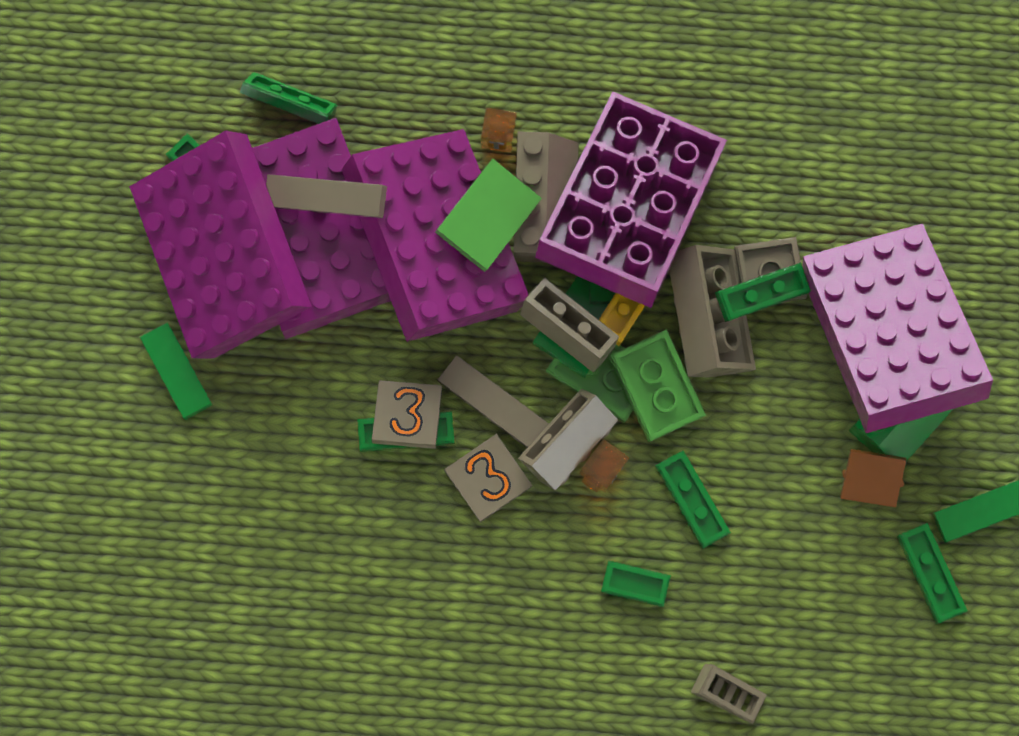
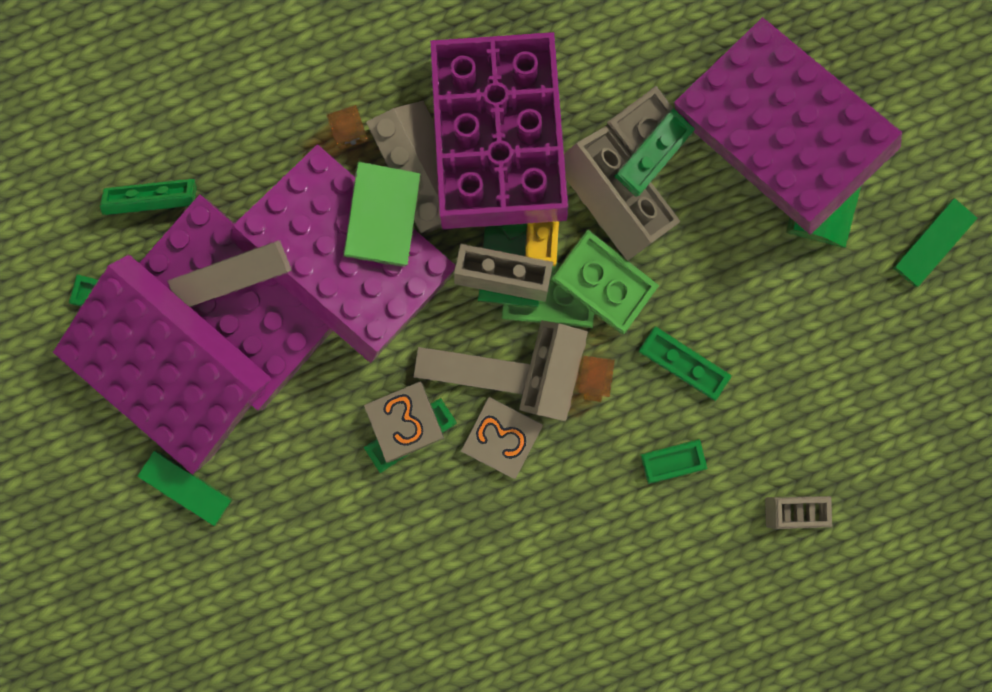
camera: 30 degrees left, 10 degrees up
(873, 478) = (829, 264): dark orange piece -> none
(932, 573) = (918, 319): green tile -> none

